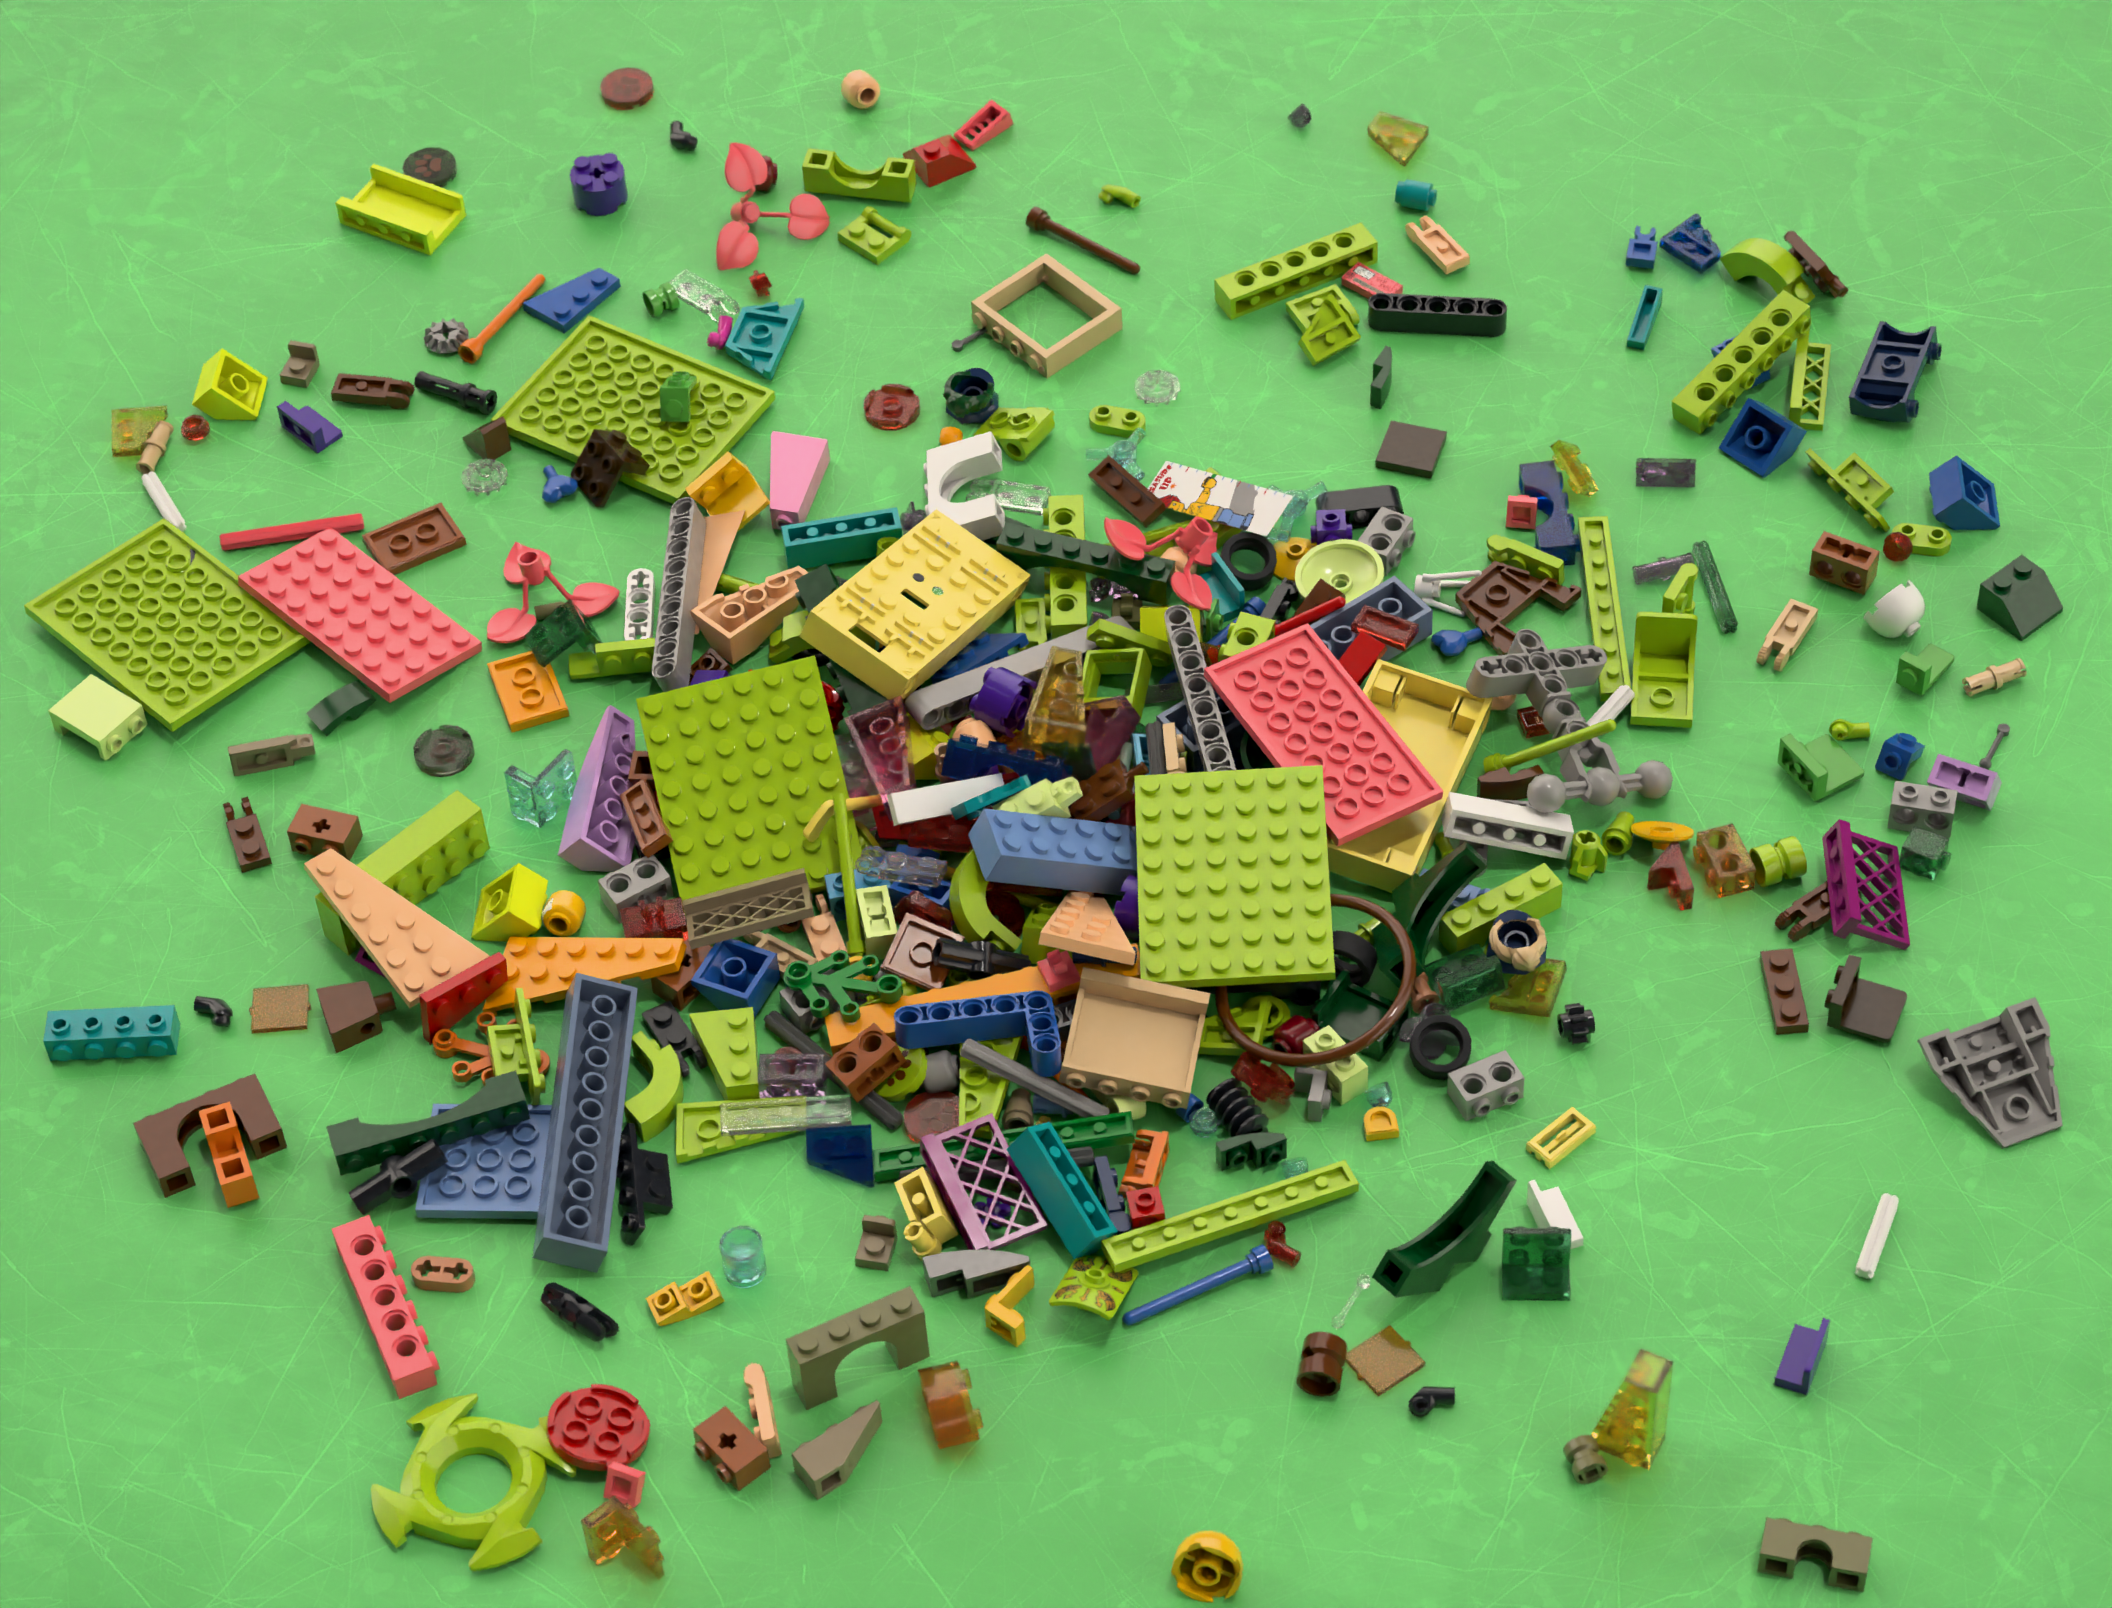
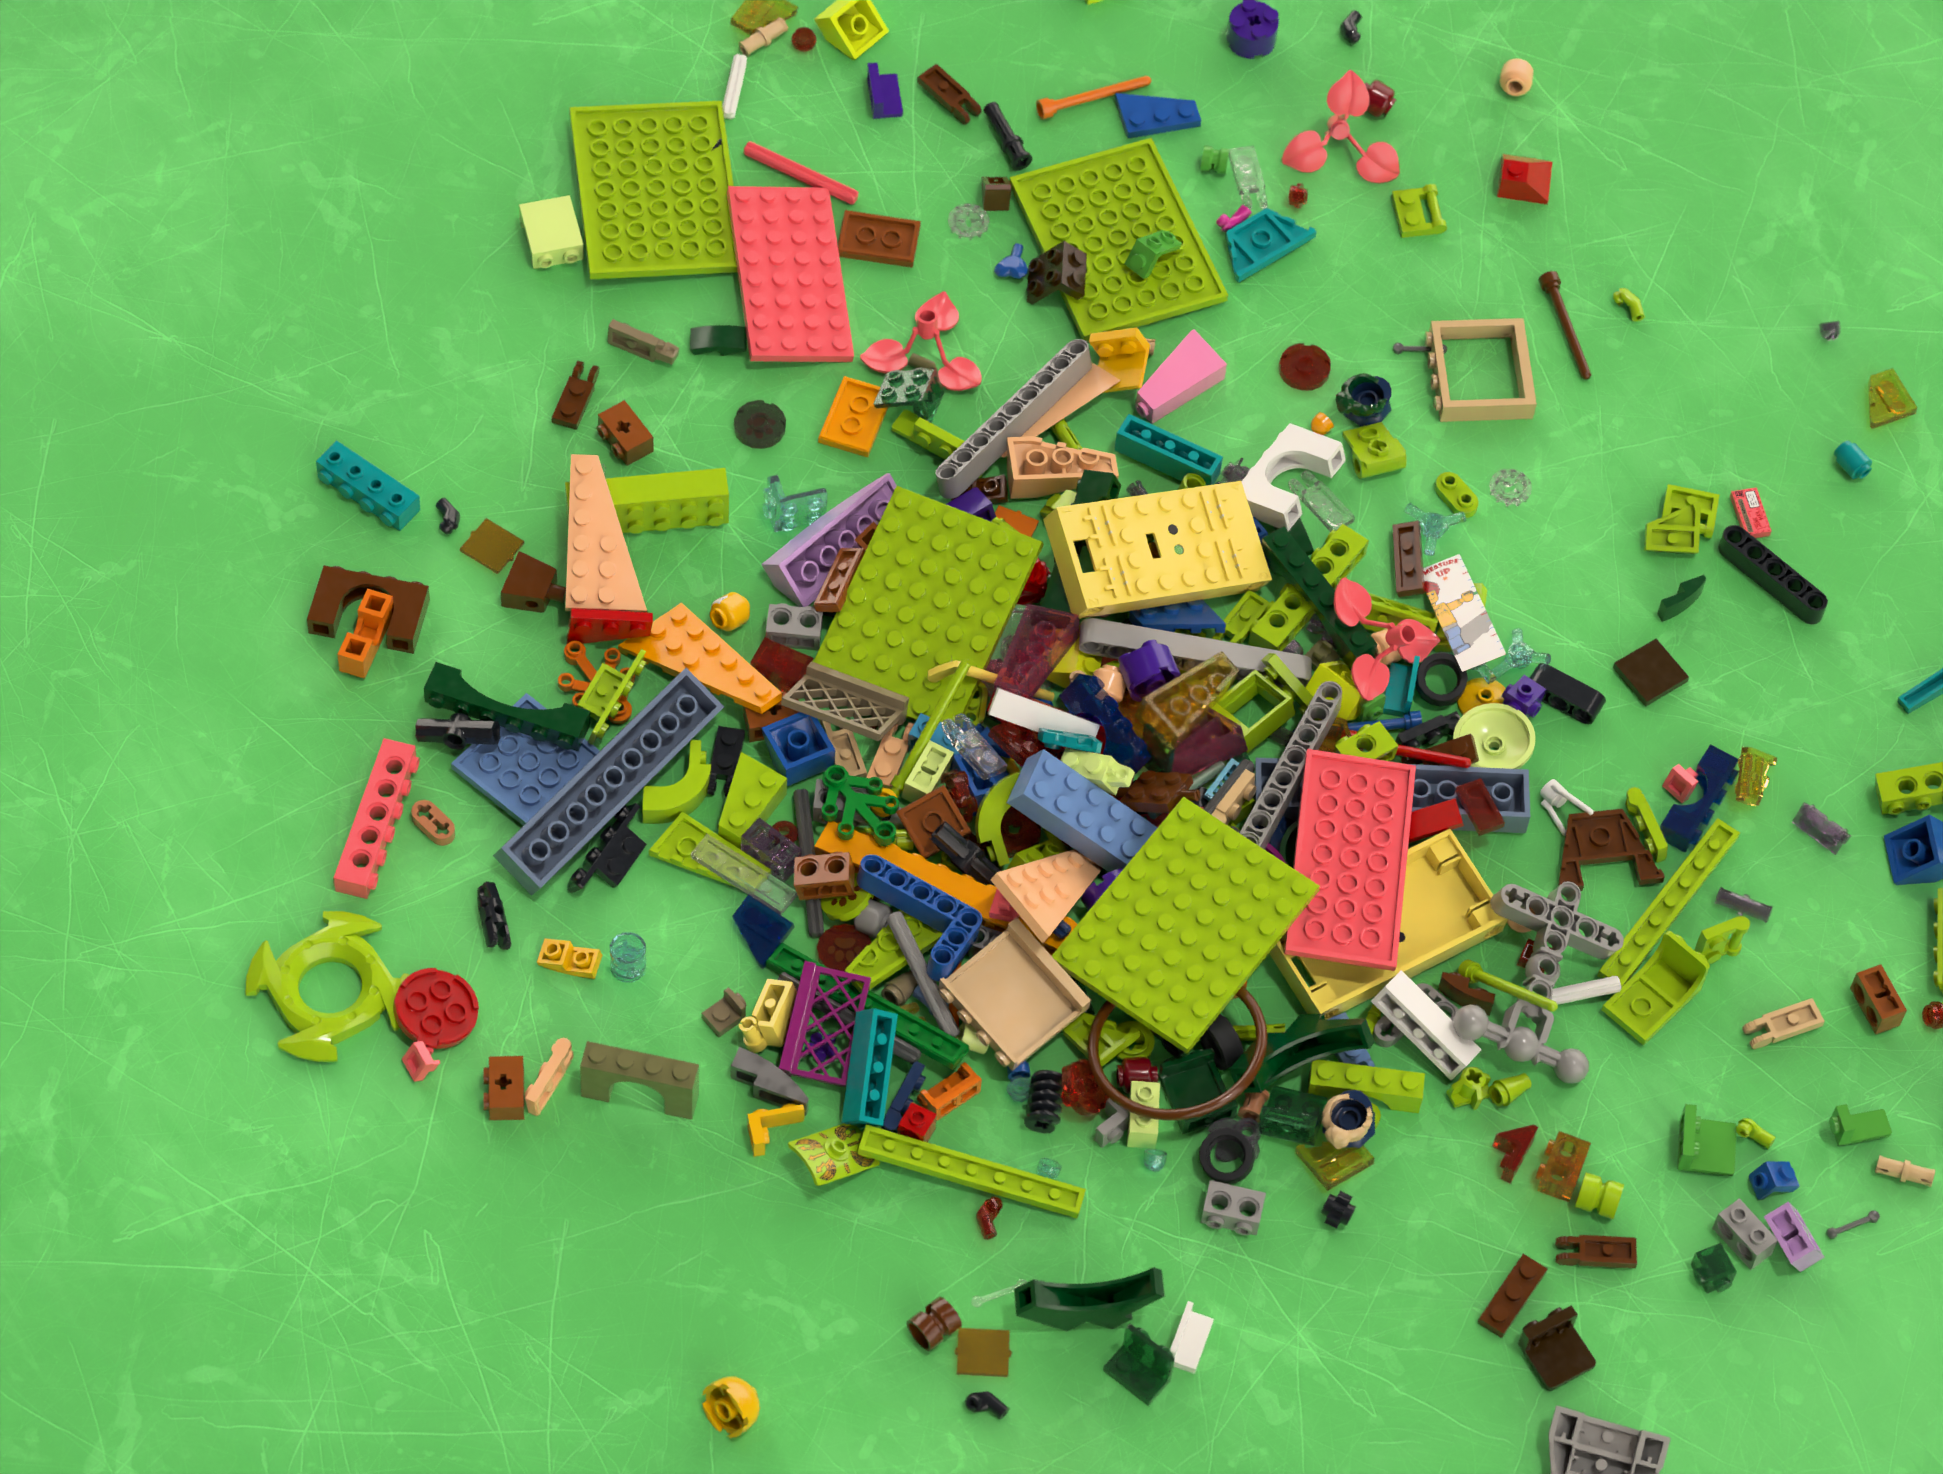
camera: 30 degrees right, 10 degrees up
(300, 365) = (918, 37): dark tan bracket -> none
(436, 342) = (1044, 90): light grey gear -> none
(510, 905) = (700, 580): neon yellow slope -> none
(618, 1525) = (380, 1087): clear orange bracket -> none
(642, 610) = (985, 411): white beam -> none
(828, 174) = (1427, 137): lime arch -> none
(834, 1454) = (568, 1142): dark tan slope -> none
(949, 1404) = (667, 1164): clear orange brick -> none
(984, 116) = (1591, 179): coral slope -> none
(1257, 1261) = (961, 1216): blue piece -> none
(1259, 1147) = (1039, 1139): dark green slope -> none
(1295, 271) = (1710, 471): lime brick -> none
(1380, 1124) = (1138, 1180): yellow tile -> none
(1389, 536) = (1554, 729): light grey brick -> none
(1438, 245) = (1830, 516): light nougat hinge -> none
(1454, 642) = (1534, 850): blue rock -> none
(1587, 1130) = (1251, 1286): light yellow tile -> none
(1662, 832) = (1539, 1110): yellow dish -> none
(1715, 587) = (1768, 947): clear green axle -> none
(1844, 885) = (1624, 1248): magenta fence -> none
(1898, 612) = (1879, 1068): white cylinder -> none

